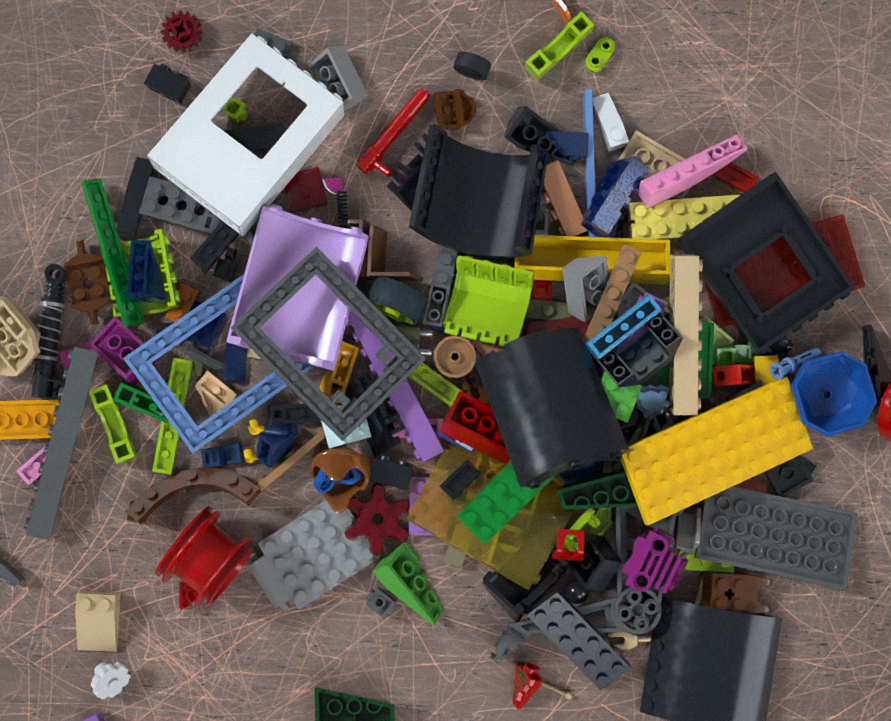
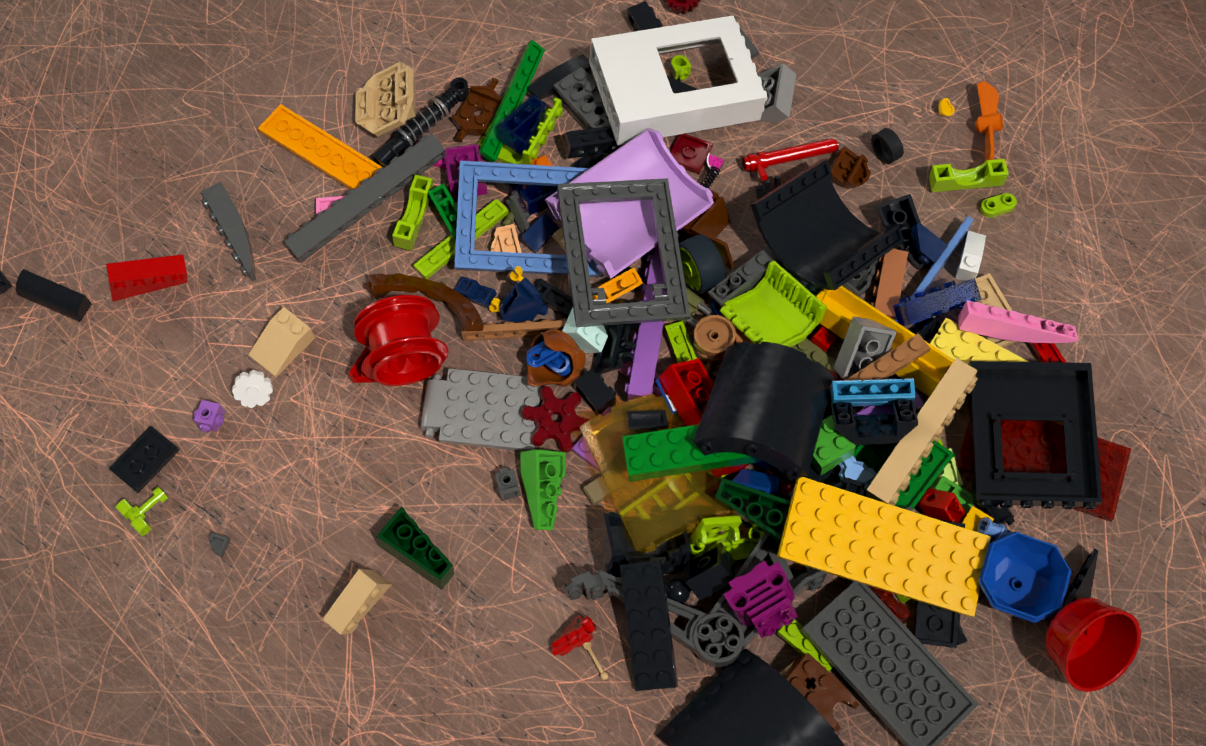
camera: 40 degrees right, 20 degrees down
(560, 554) = (687, 538): red piece -> none
(630, 640) = (693, 667): tan hand -> none
(688, 531) = (811, 607): light grey panel -> none

